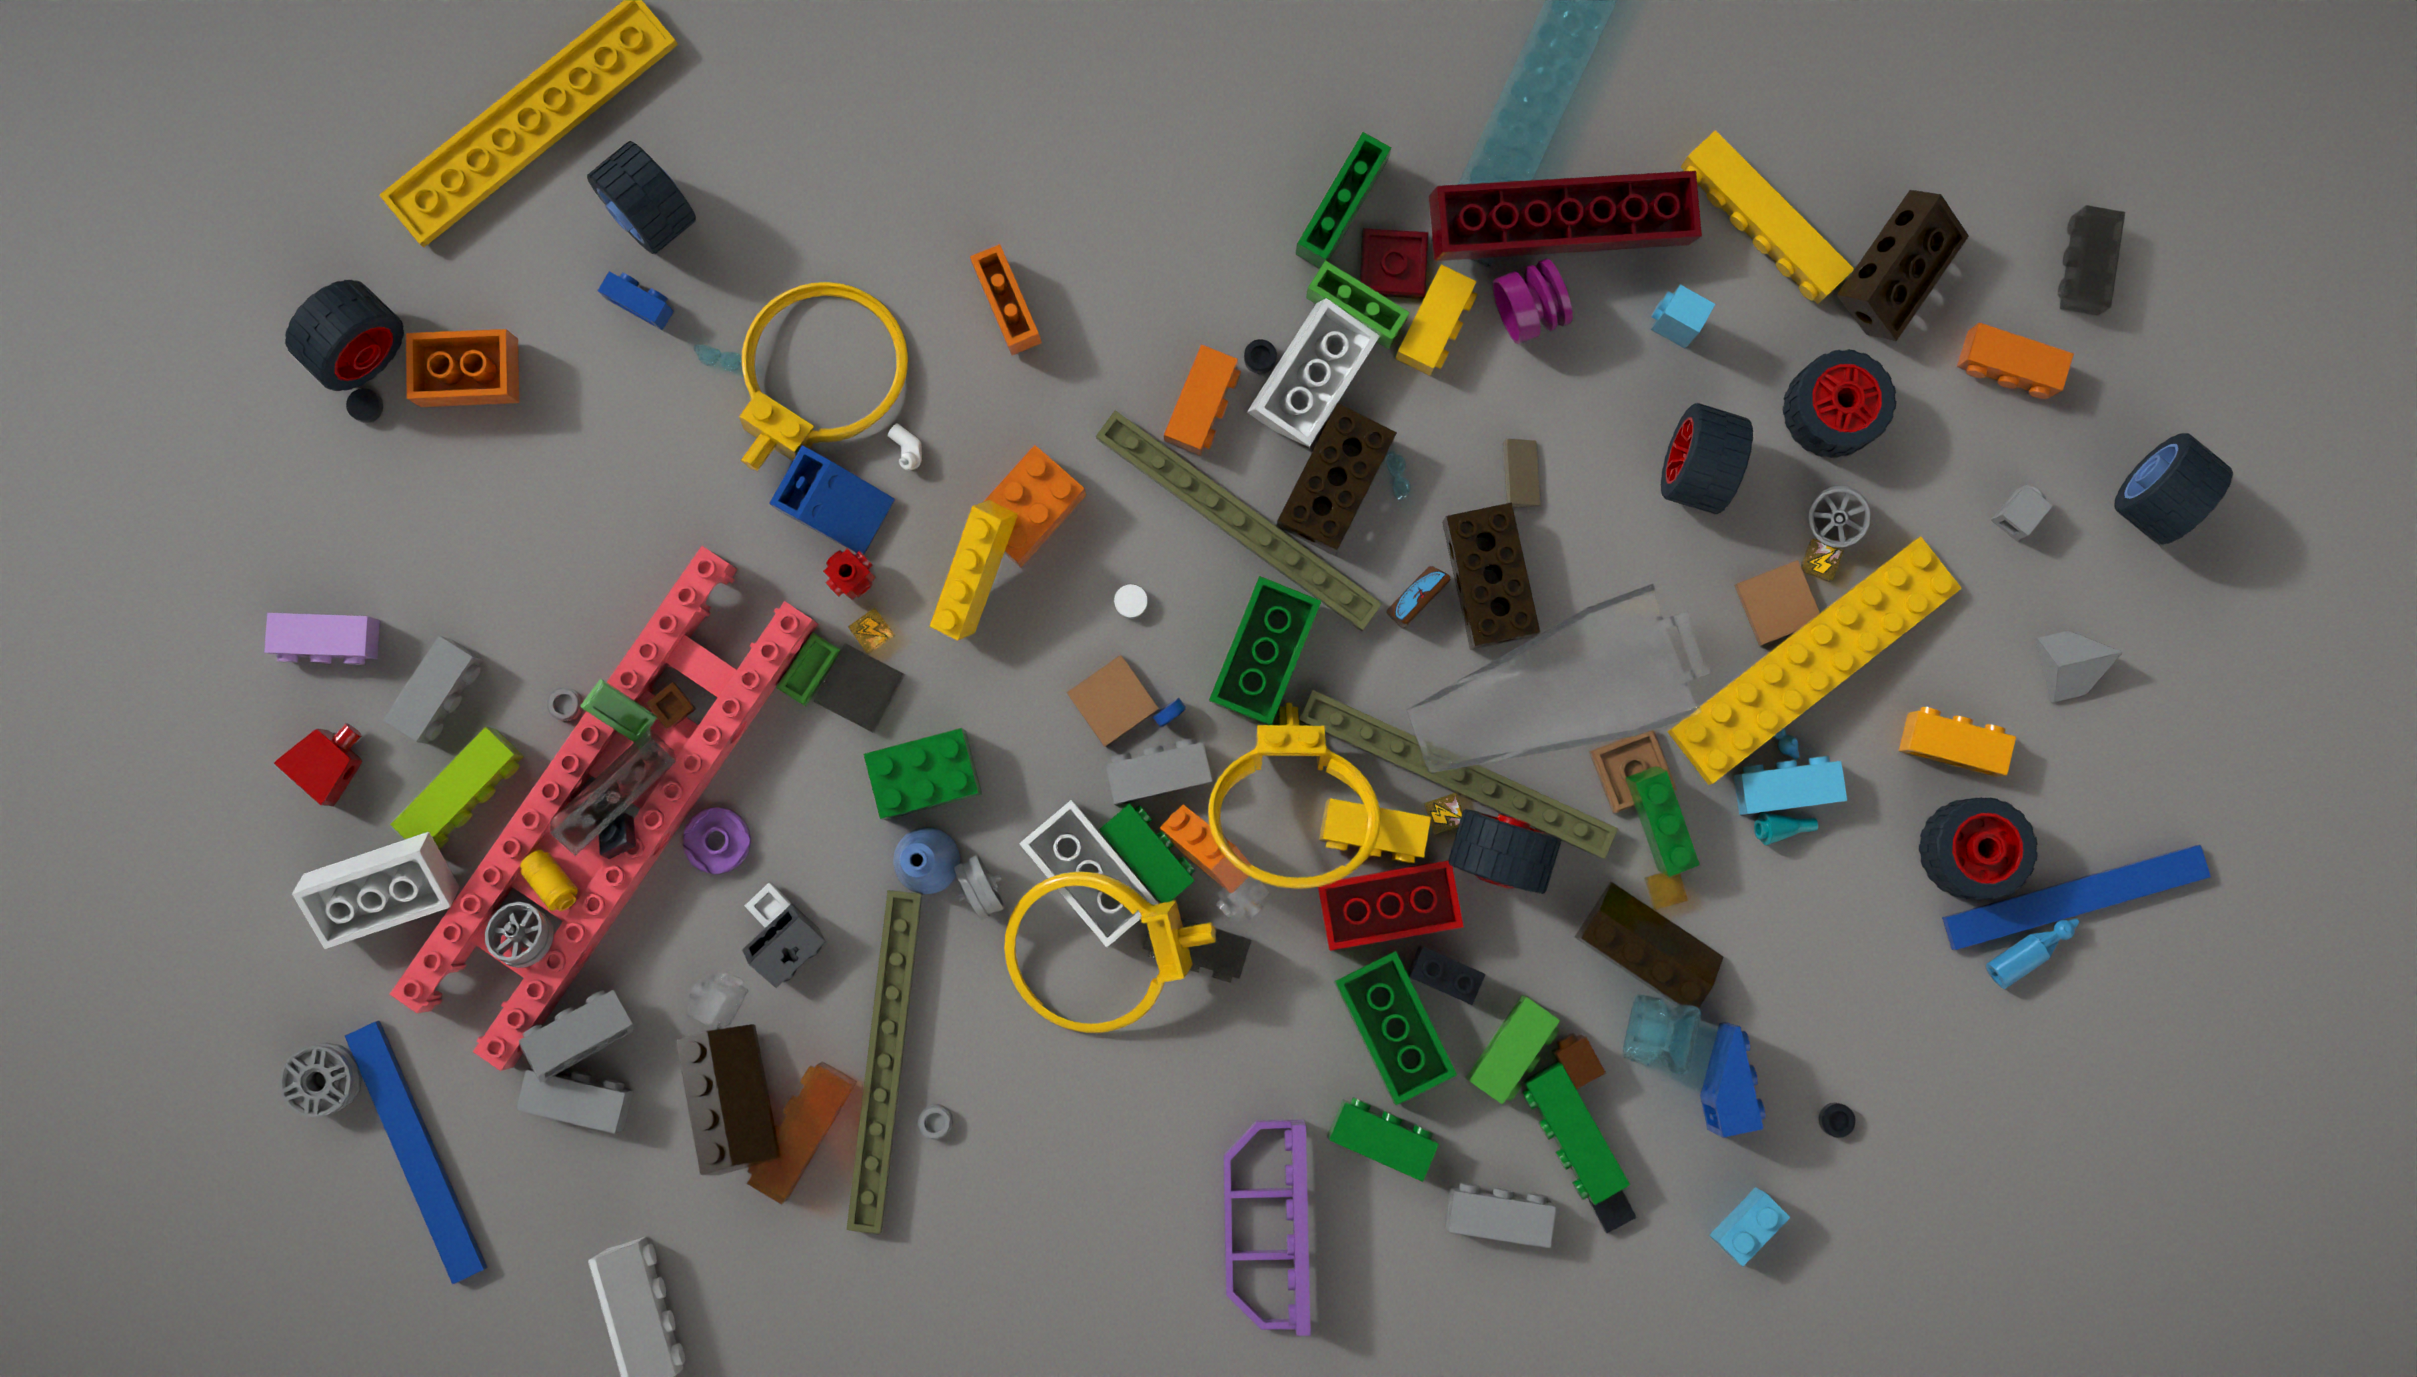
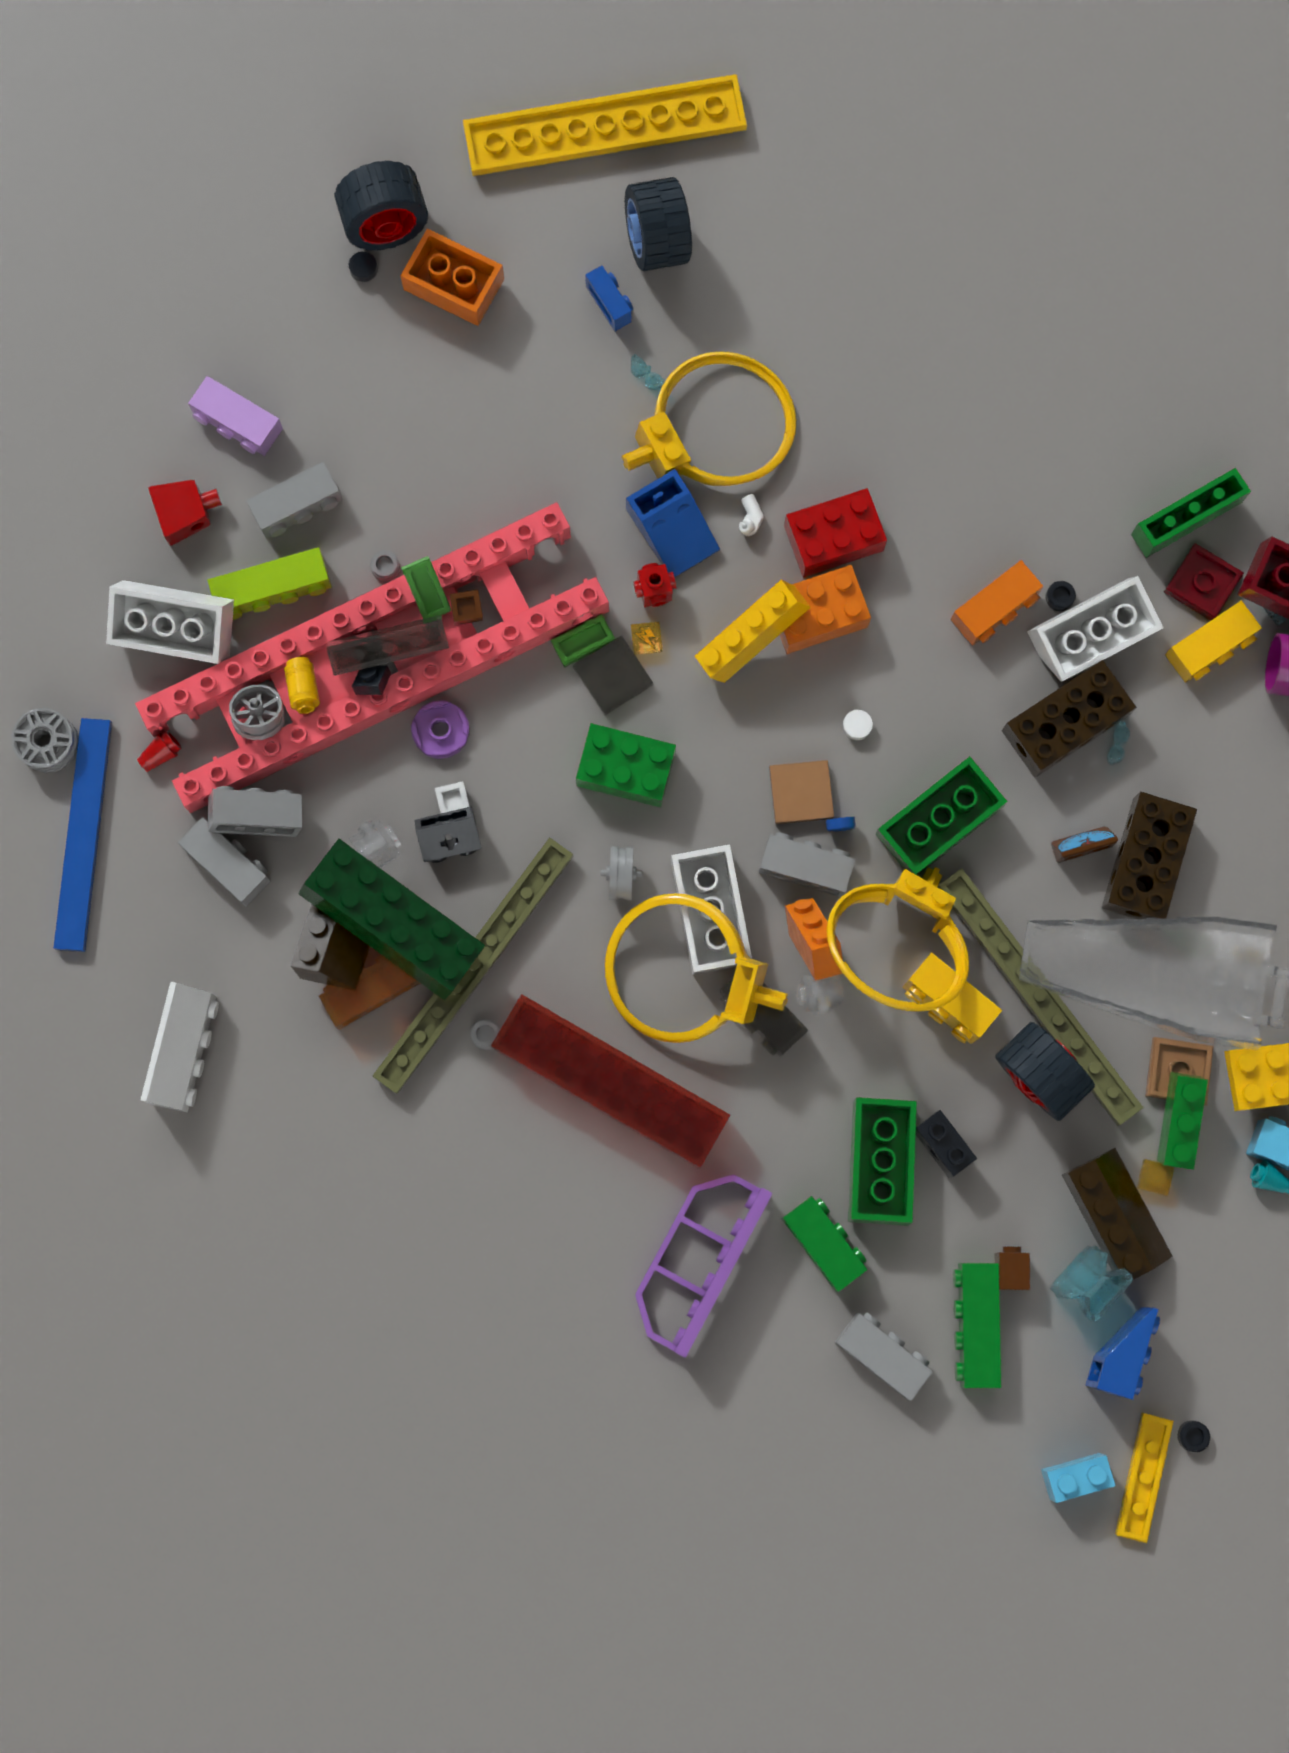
camera: 30 degrees right, 5 degrees down
(444, 1024) = (160, 750): none -> red cone
(774, 1070) = (391, 919): none -> dark green brick
(939, 859) = (590, 833): medium blue cone -> none
(1000, 418) = (835, 532): none -> red brick
(1005, 299) = (889, 446): orange brick -> none
(1084, 1102) = (610, 1081): none -> clear red brick
(1148, 853) = (765, 920): green brick -> none
(1238, 520) = (975, 710): olive plate -> none
(1359, 301) = (1163, 594): bright green brick -> none
(1390, 905) = (931, 1065): red brick -> none
(1444, 813) = (1011, 1020): tile -> none
(1513, 1050) = (966, 1233): bright green brick -> none
(1521, 472) = (1217, 794): dark tan slope -> none
(1613, 1212) = (975, 1403): black tile -> none
(1811, 1187) = (1144, 1477): none -> yellow tile

